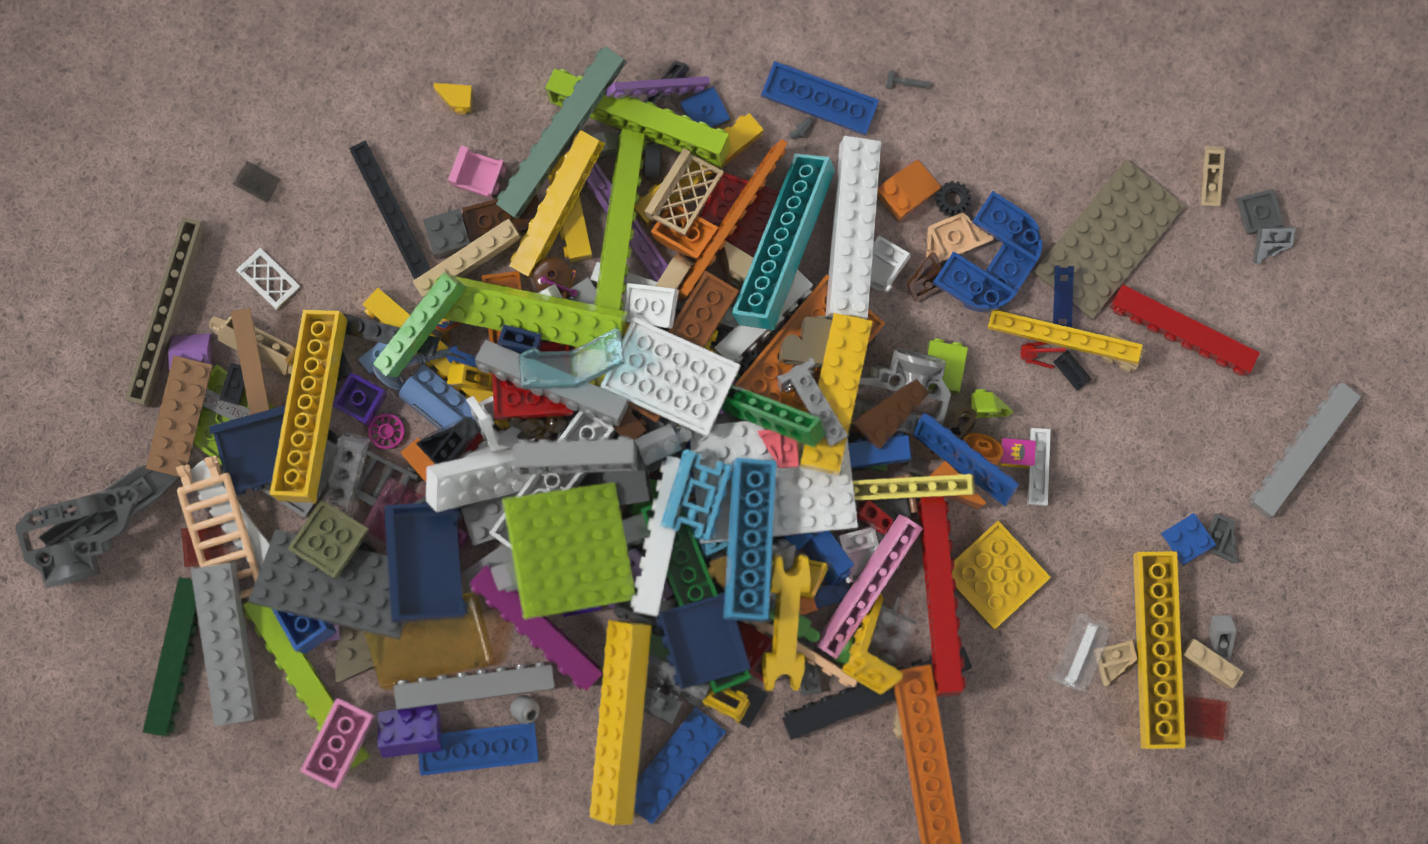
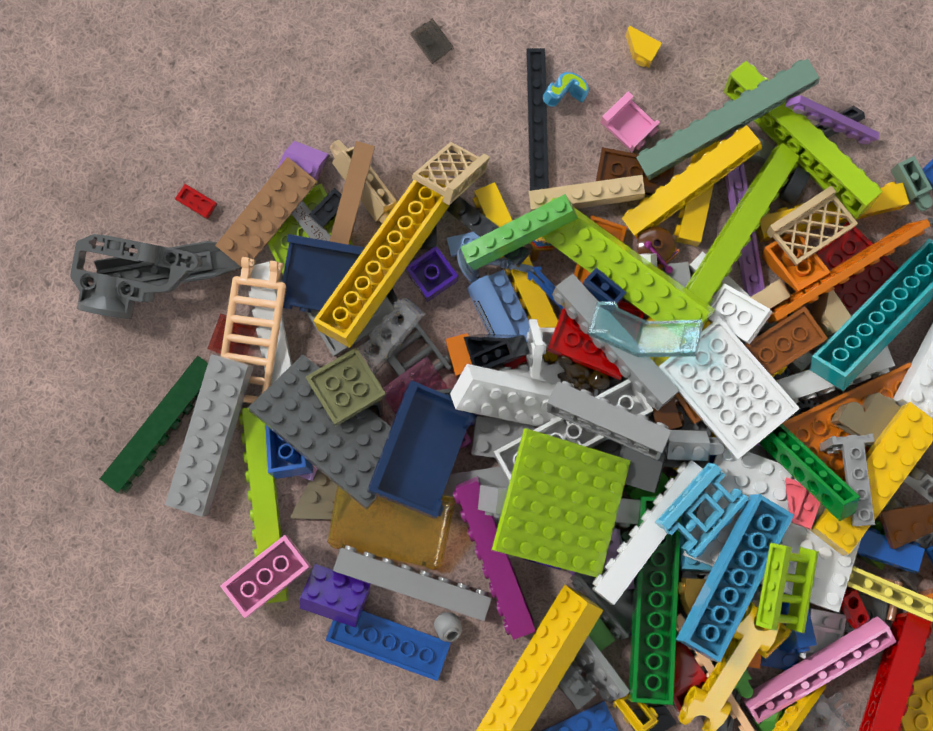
camera: 30 degrees right, 0 degrees up
(107, 436) = (196, 201): none -> red plate
(165, 312) = (298, 117): dark tan brick -> none
(270, 263) = (390, 109): white window -> none
(346, 298) = (463, 178): none -> tan fence
(386, 431) = (441, 313): dark pink wheel -> none
(399, 164) = (566, 83): none -> dark azure animal
(446, 233) = (578, 163): dark grey brick -> none
(469, 378) = (540, 301): yellow slope -> none
(702, 642) = (644, 649): dark blue panel -> none
(706, 108) = (864, 157): blue plate -> none
(759, 107) = (914, 182): none -> sand green brick
(784, 529) = (774, 585): none -> lime fence

